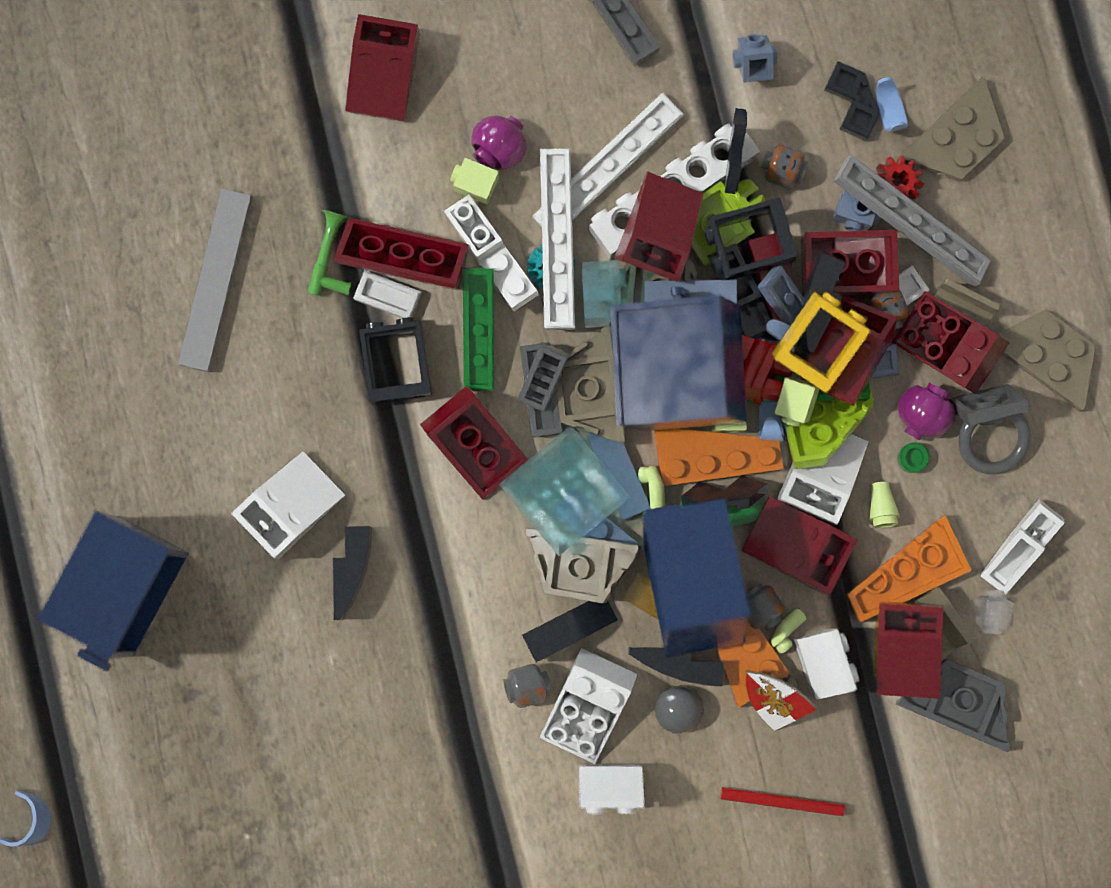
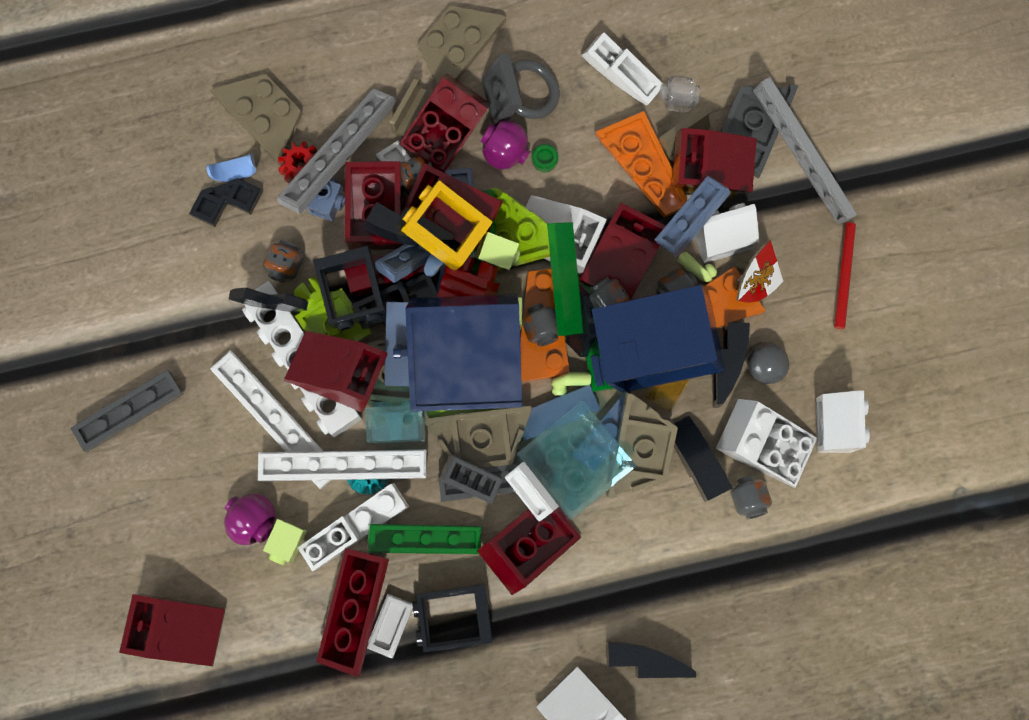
camera: 85 degrees left, 5 degrees down
(319, 279) = (371, 691): bright green piece -> none
(530, 442) = (531, 491): none -> white tile
(715, 452) = (540, 325): none -> dark grey head
(749, 527) = (607, 293): none -> dark grey head
(755, 57) = (182, 284): sand blue brick -> none
(766, 476) = (565, 278): none -> green tile
(770, 424) = (514, 279): light blue helmet -> none
(840, 618) = (692, 216): none -> sand blue tile
(883, 507) = (587, 184): yellowish green cone -> none
(926, 754) = (804, 151): none -> light grey tile

